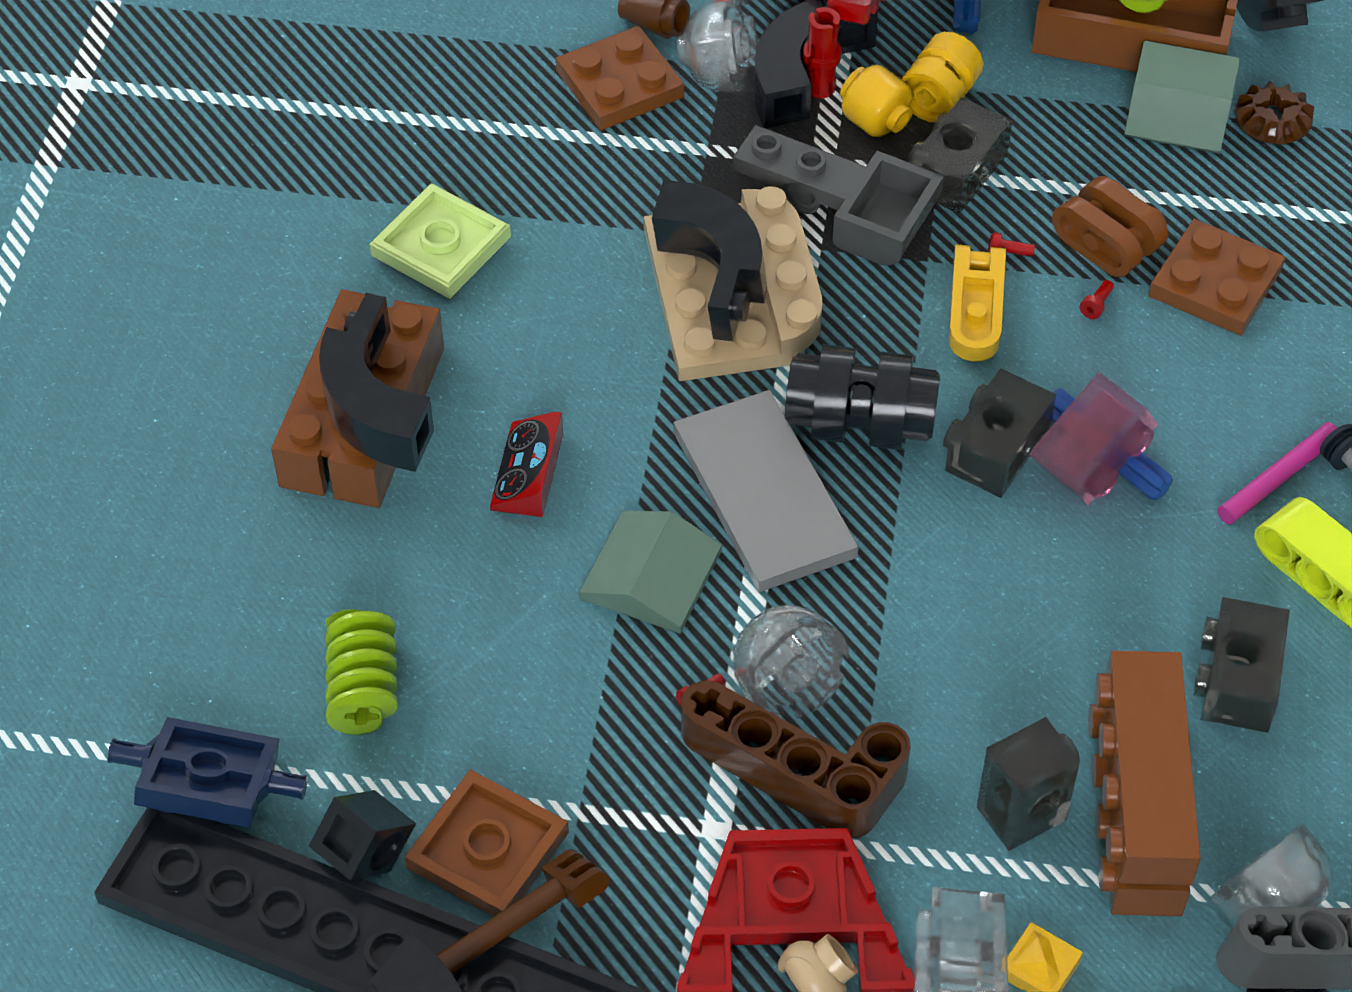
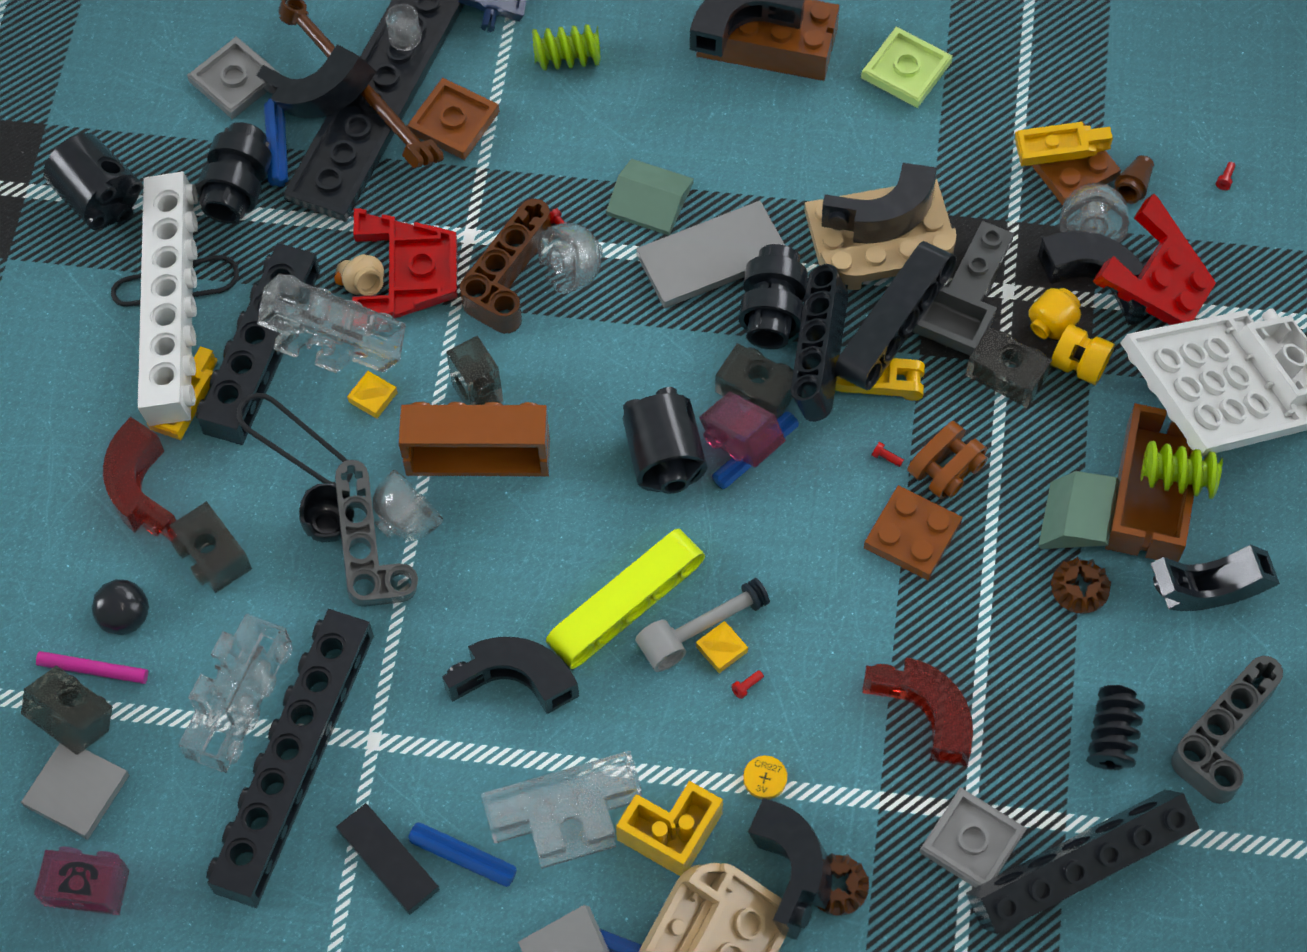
camera: 90 degrees right, 10 degrees up
(302, 890) = (403, 27): none -> clear wheel
(362, 834) = (453, 54): black brick -> none
(528, 465) = (725, 128): slope -> none
(609, 67) = (1061, 143): none -> yellow hinge
(822, 51) = (1086, 271): red pin -> none
(905, 247) = (895, 315): none -> black beam
(967, 332) = (819, 343): none -> black beam
(1011, 246) = (931, 393): red piece -> none
(1127, 532) = (664, 441): none -> black cylinder
(1249, 692) = (587, 527): clear smoke brick -> none
(1274, 476) = (735, 554): dark pink bar -> none

